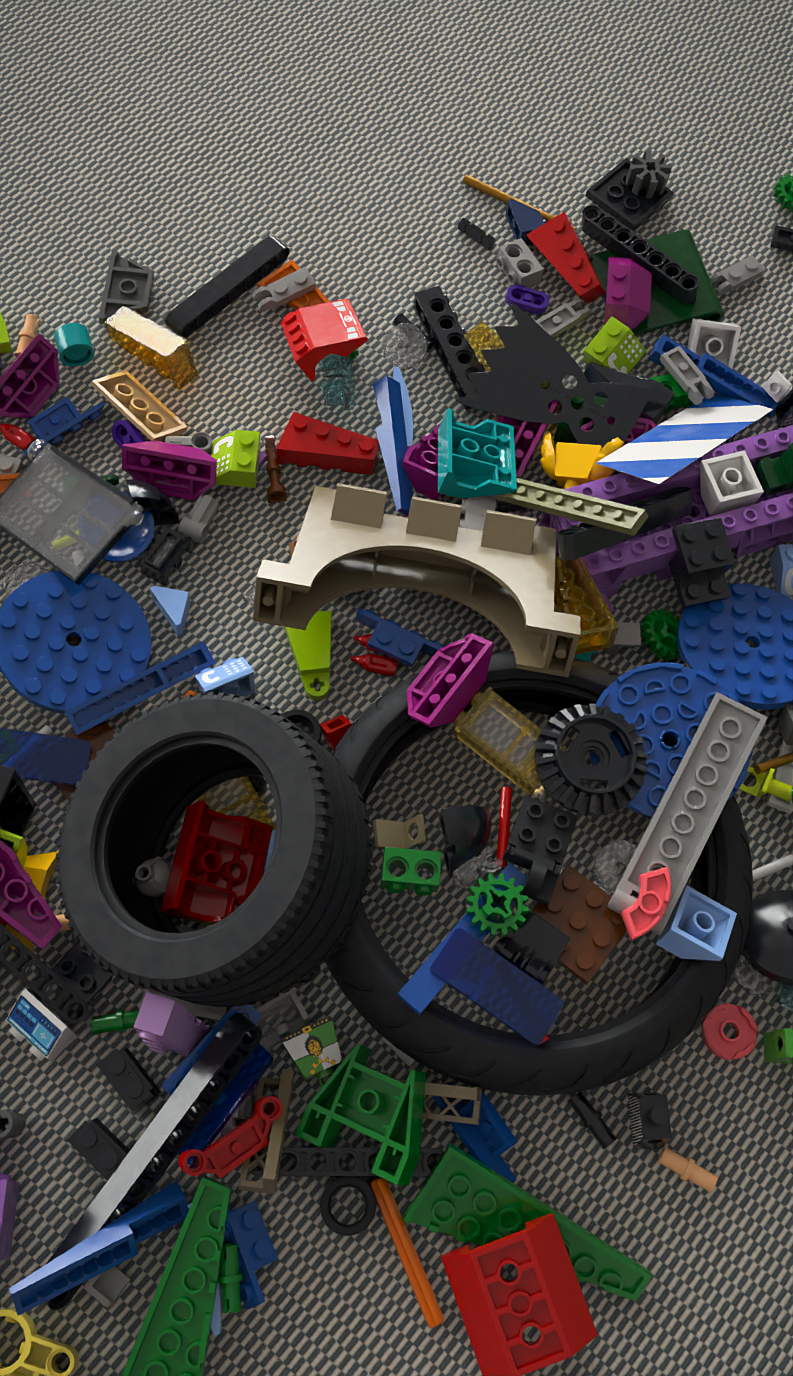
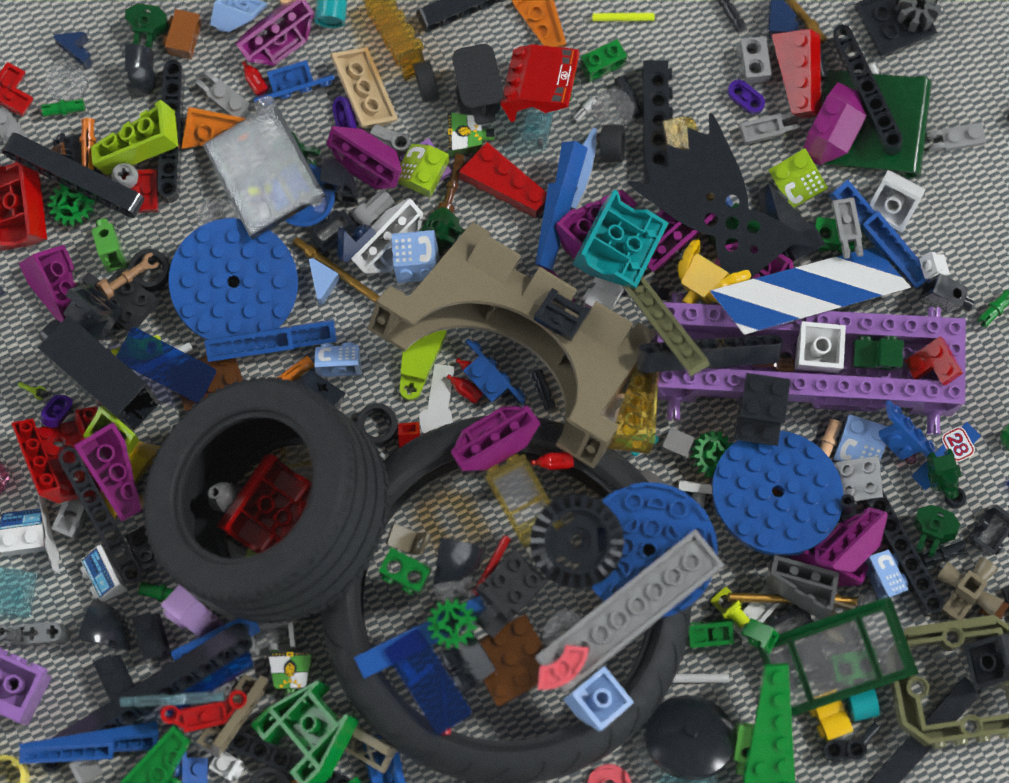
camera: 30 degrees right, 10 degrees up
(66, 1090) = (105, 626): none -> black brick
(147, 582) = (312, 252): none -> pearl gold bar
(188, 1144) = (178, 699): none -> clear light blue piece
(189, 555) = (348, 245): none -> dark blue slope
(204, 377) = (426, 81): none -> black tyre
(229, 539) = (377, 253): none -> white wedge
(264, 353) = (478, 82): none -> black piece
(265, 539) = (414, 255): none -> light blue slope
(266, 414) = (465, 135): none -> torso
(284, 290) = (531, 17): light grey hinge -> none
(285, 513) = (445, 227): none -> dark green hinge
(286, 1200) = (227, 766): none -> white bracket
(351, 685) = (438, 411): none -> white sticker
(375, 357) = (586, 107): none -> white pin
(376, 306) = (603, 60): none -> green brick
(377, 266) = (623, 16): none -> neon yellow bar
(420, 376) = (612, 143): none -> black tyre
(454, 631) = (543, 389): none -> black axle
(459, 534) = (557, 318): none -> black plate
(522, 685) = (555, 461): none -> red piece
(698, 514) = (783, 365): none -> reddish brown piece
(762, 813) = (710, 633): none -> green brick
(767, 573) = (829, 441): none -> light nougat pin

